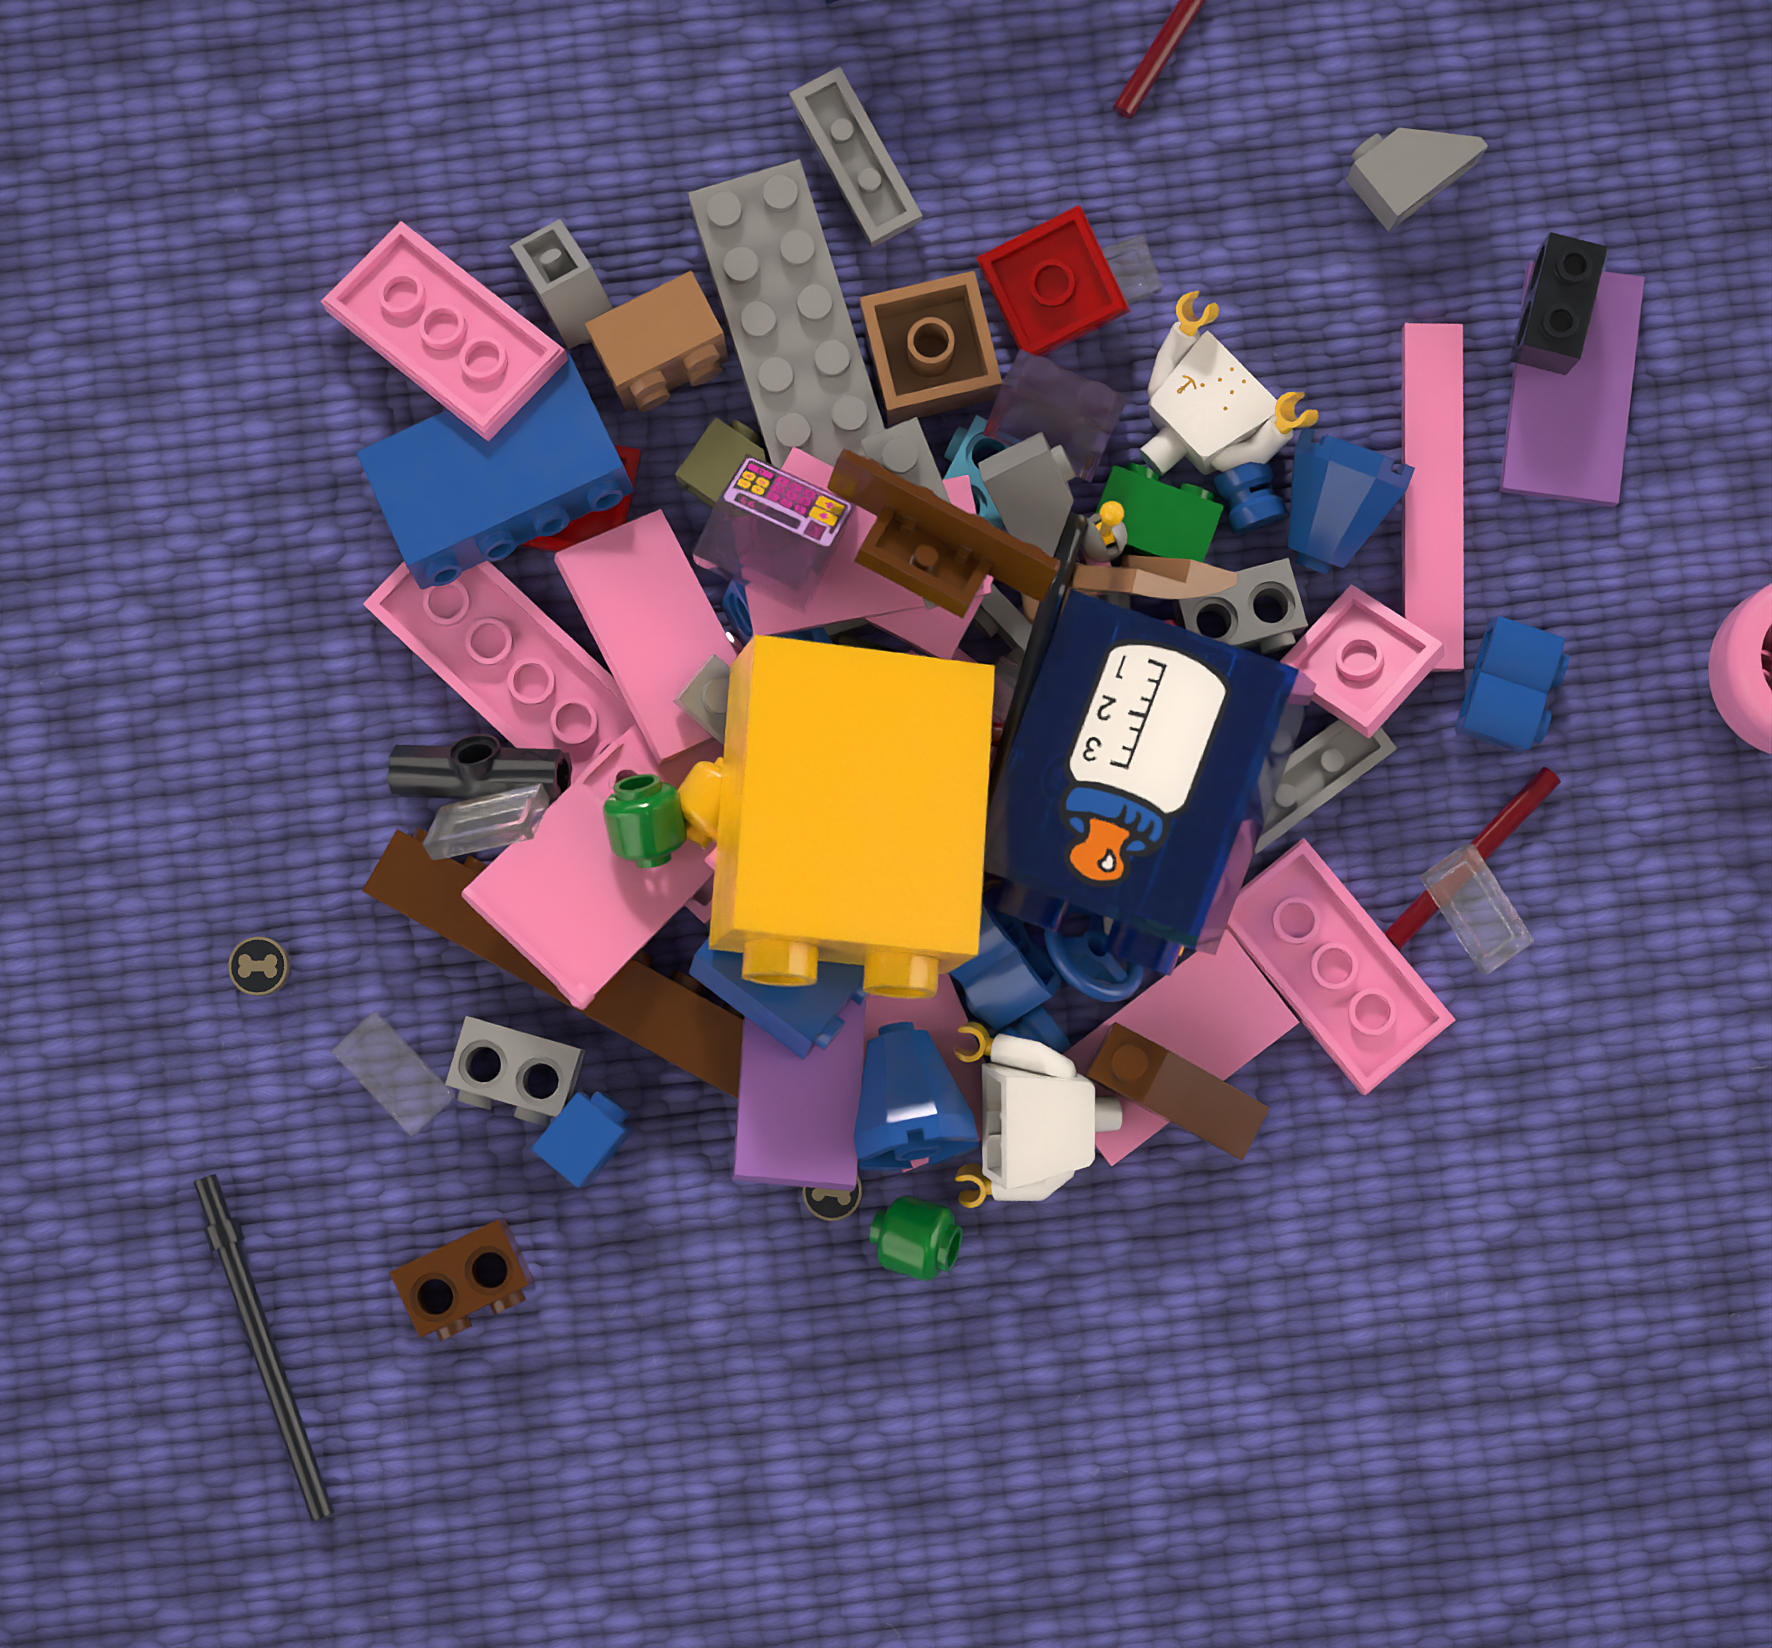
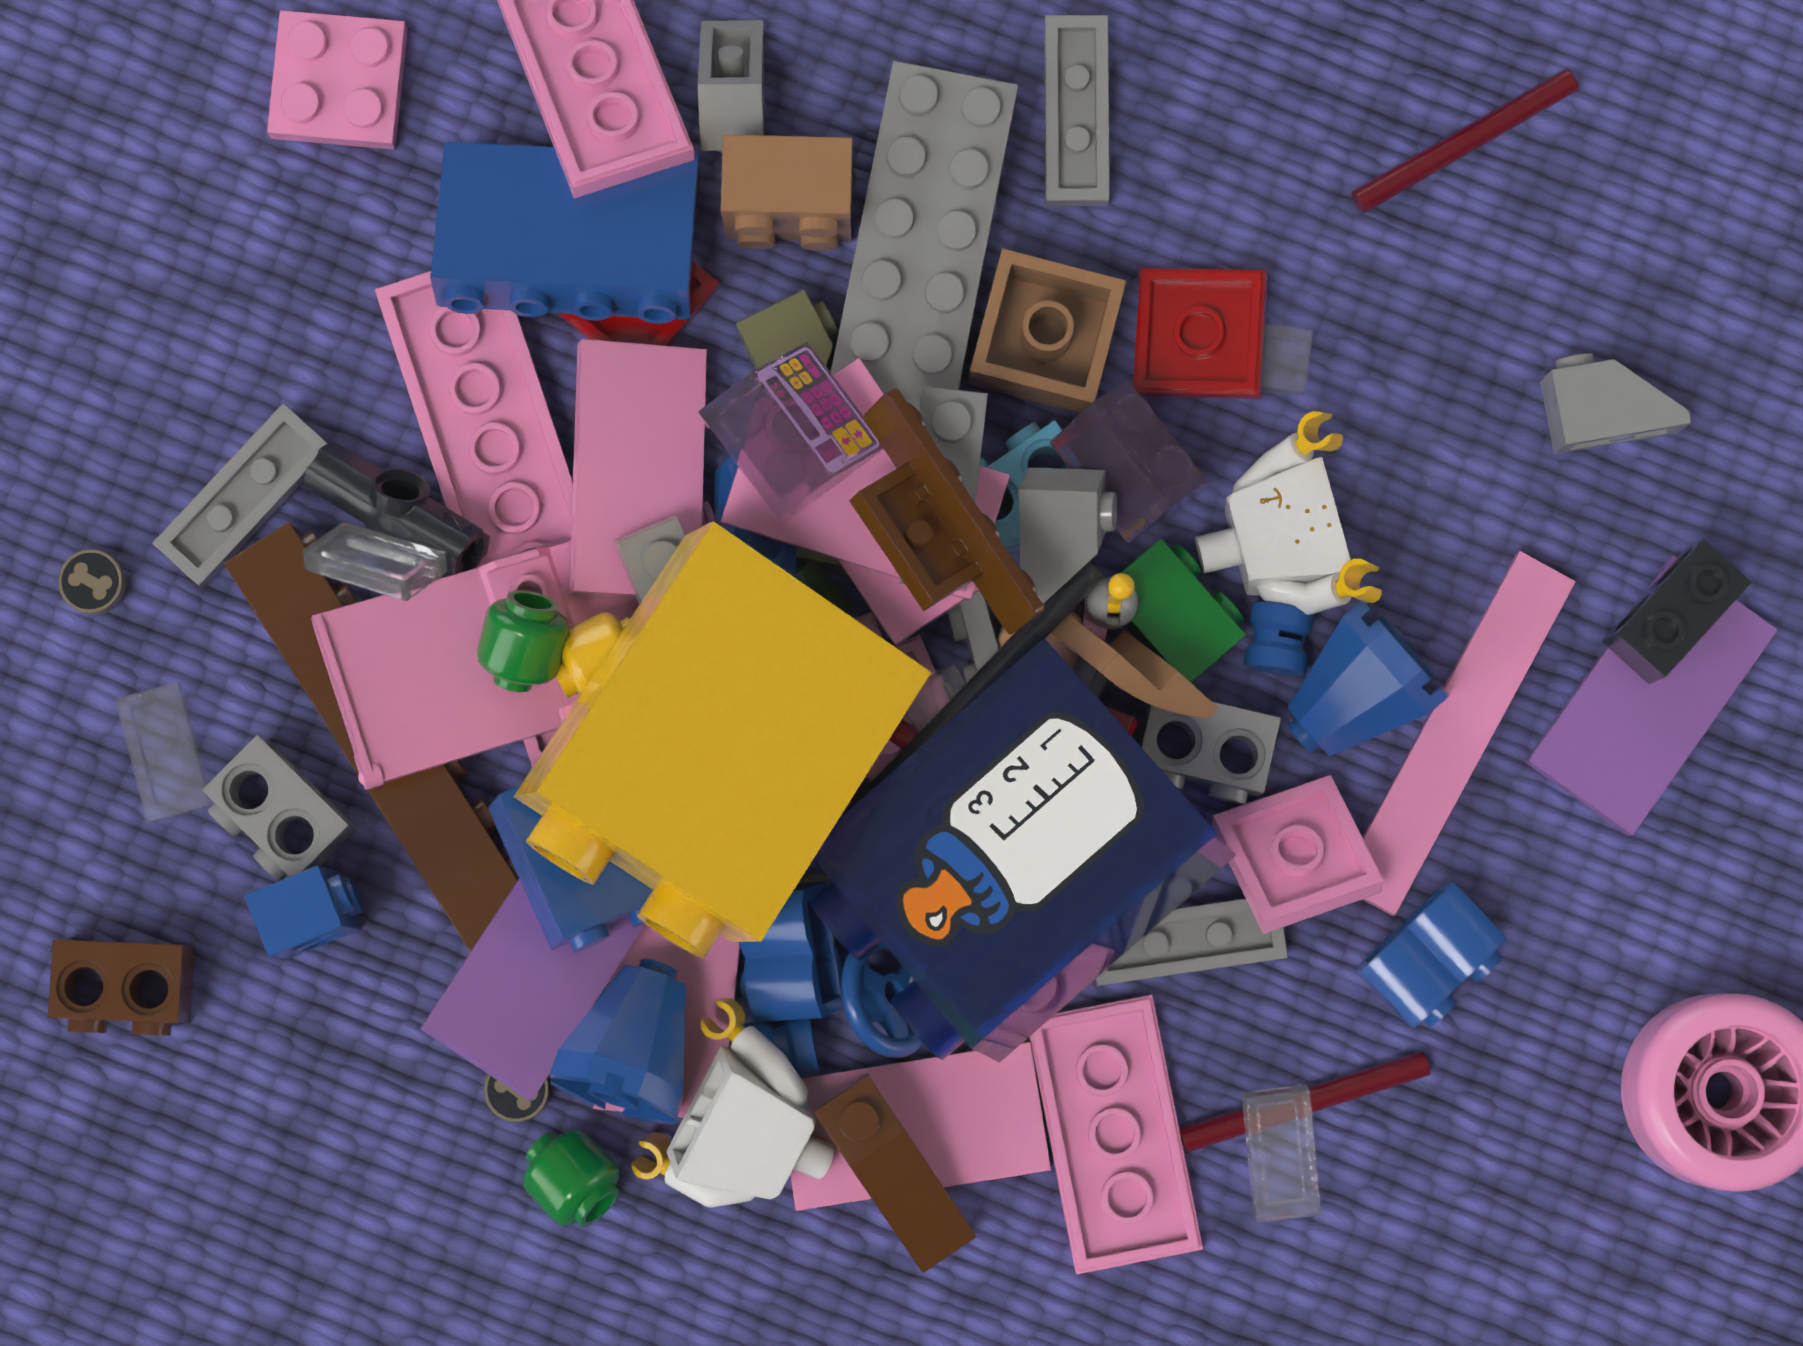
camera: 25 degrees right, 0 degrees up
(237, 450) = (337, 80): none -> bright pink plate
(344, 831) = (240, 497): none -> light grey plate

